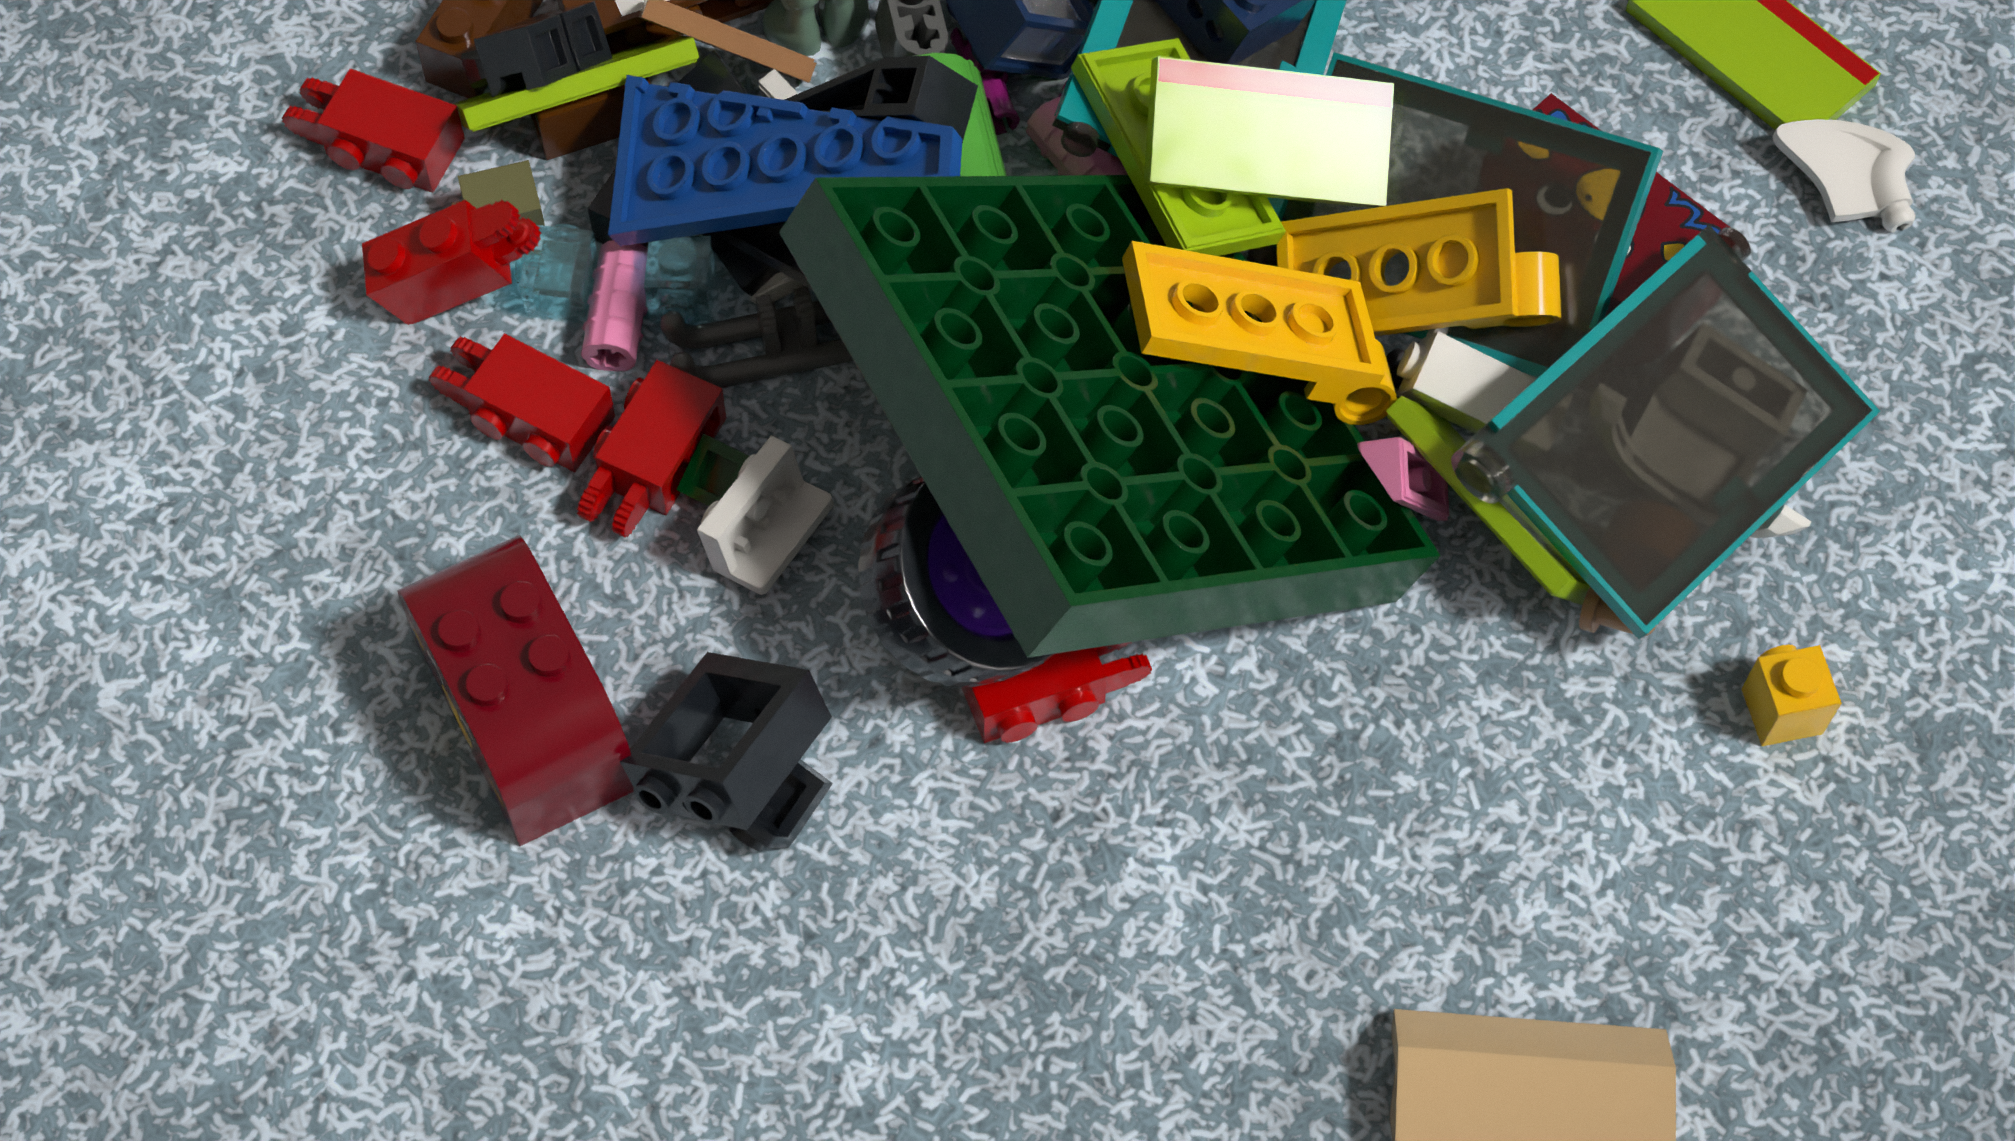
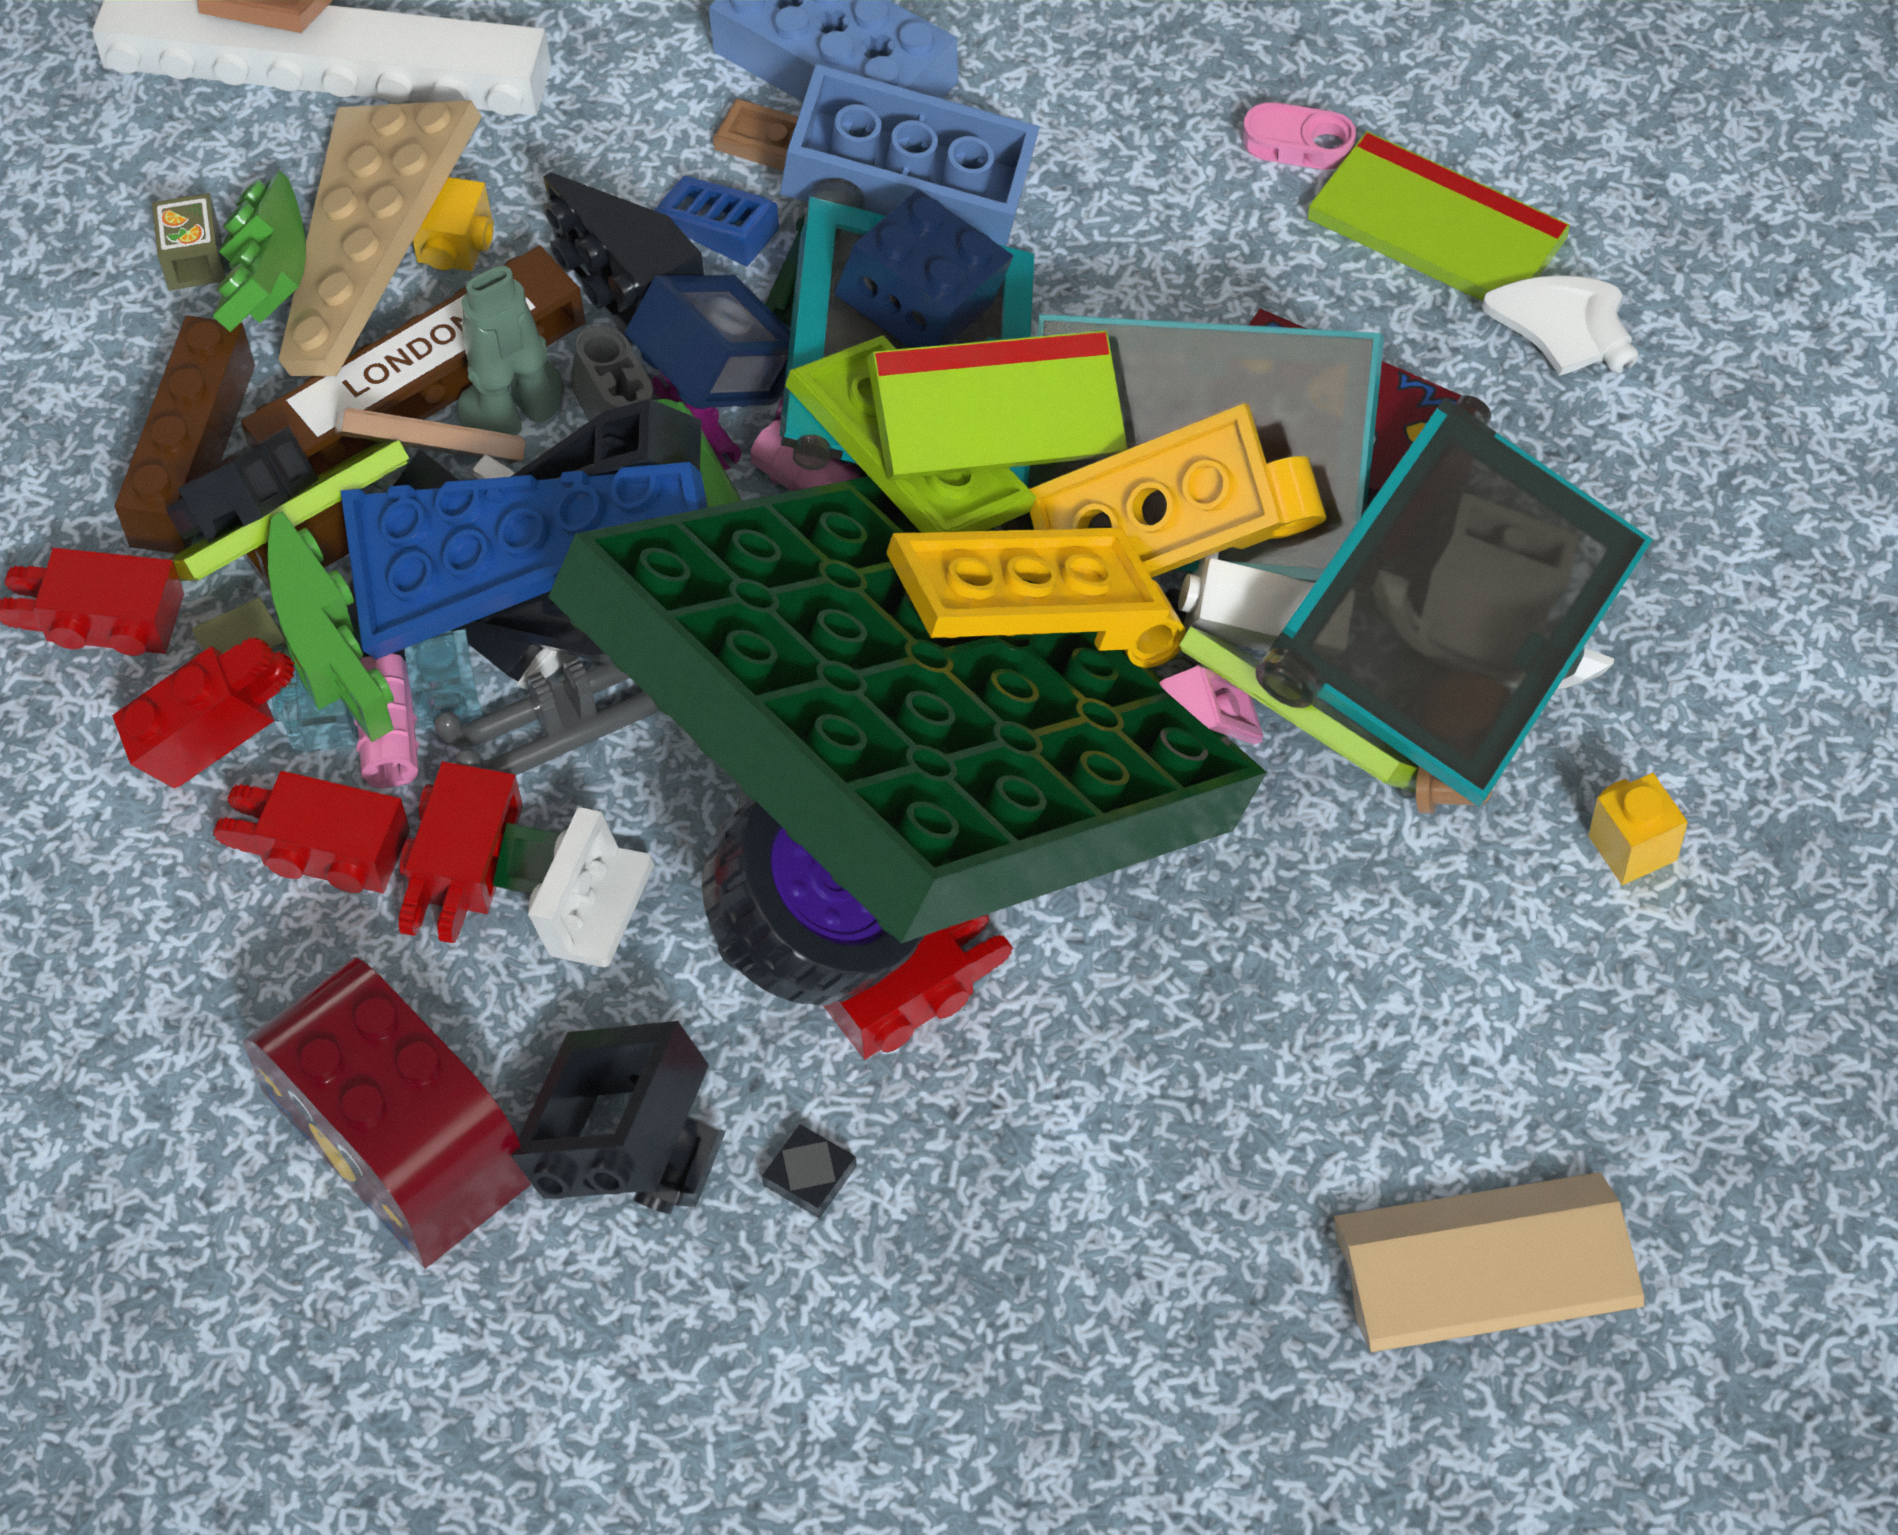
camera: 10 degrees left, 5 degrees down
(571, 201) = (320, 631): none -> bright green slope
(903, 840) = (809, 1171): none -> black tile

